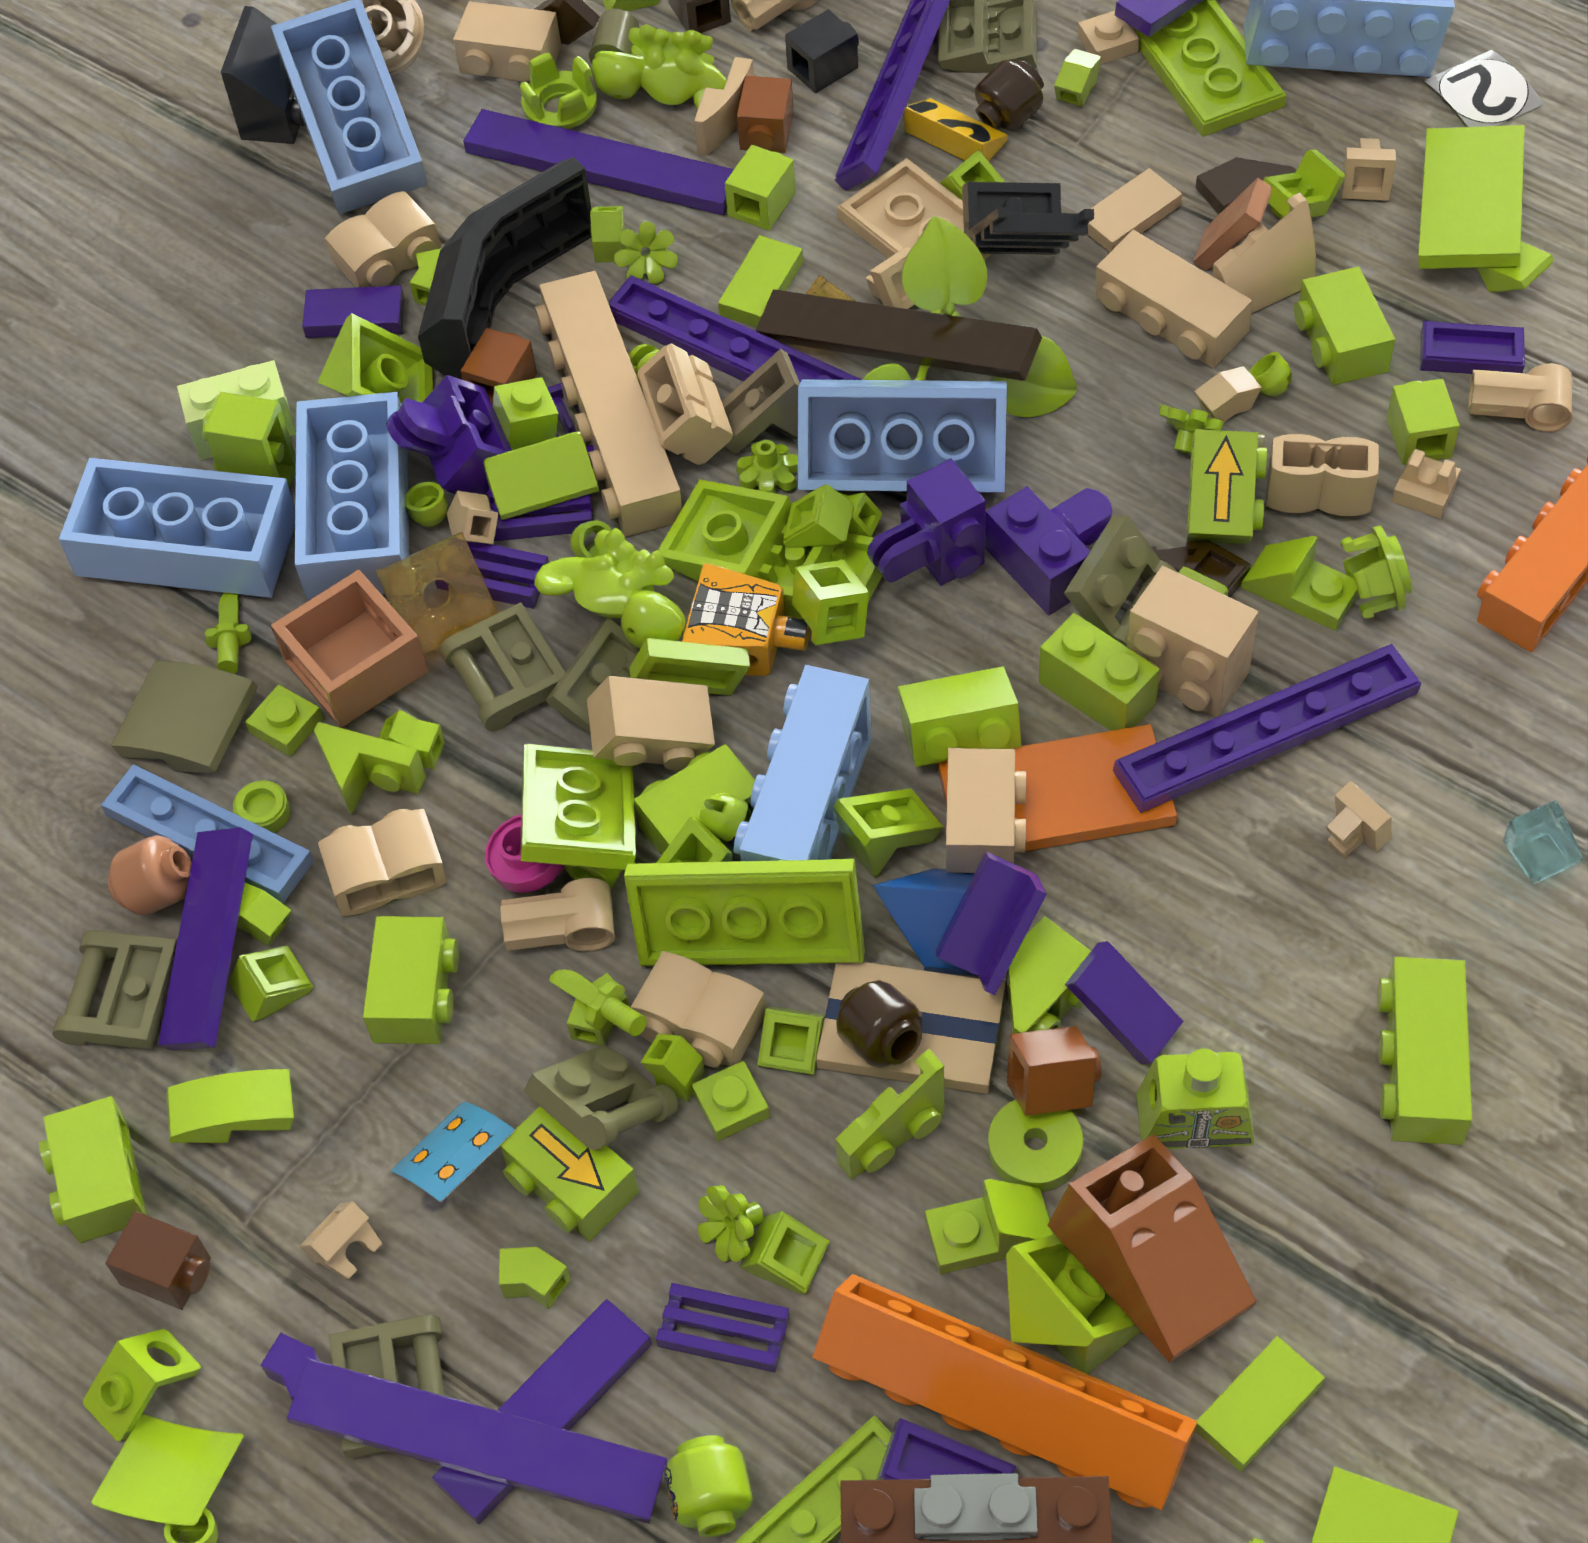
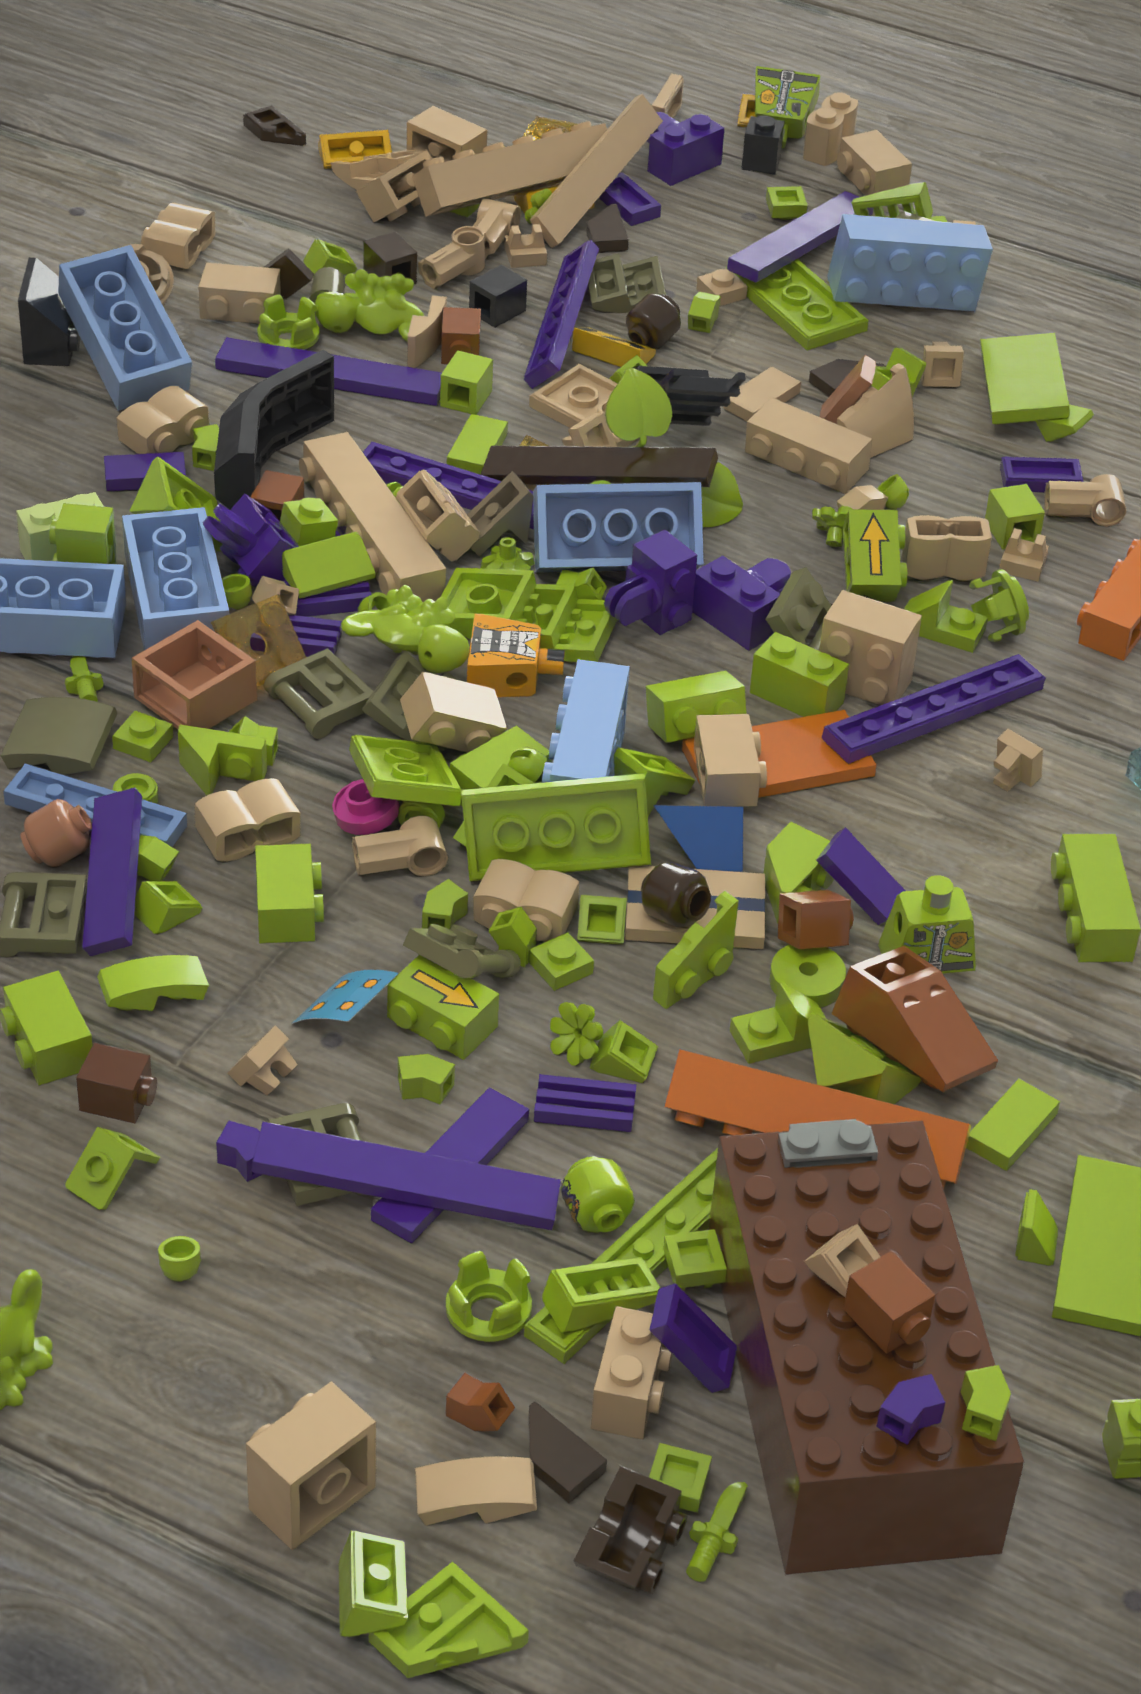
camera: 15 degrees left, 15 degrees down
(166, 1472) = (149, 1221): lime sticker -> none
(603, 1003) = (450, 894): lime piece -> none
(606, 226) = (349, 414): lime piece -> none
(648, 260) = (388, 423): lime plant -> none
(691, 663) = (499, 676): lime tile -> none
(818, 519) = (560, 583): lime slope -> none
(831, 601) = (583, 632): lime brick -> none
(992, 920) = (751, 822): dark purple panel -> none
(1344, 326) = (943, 459): lime brick -> none
(1485, 90) = (1019, 317): sticker -> none

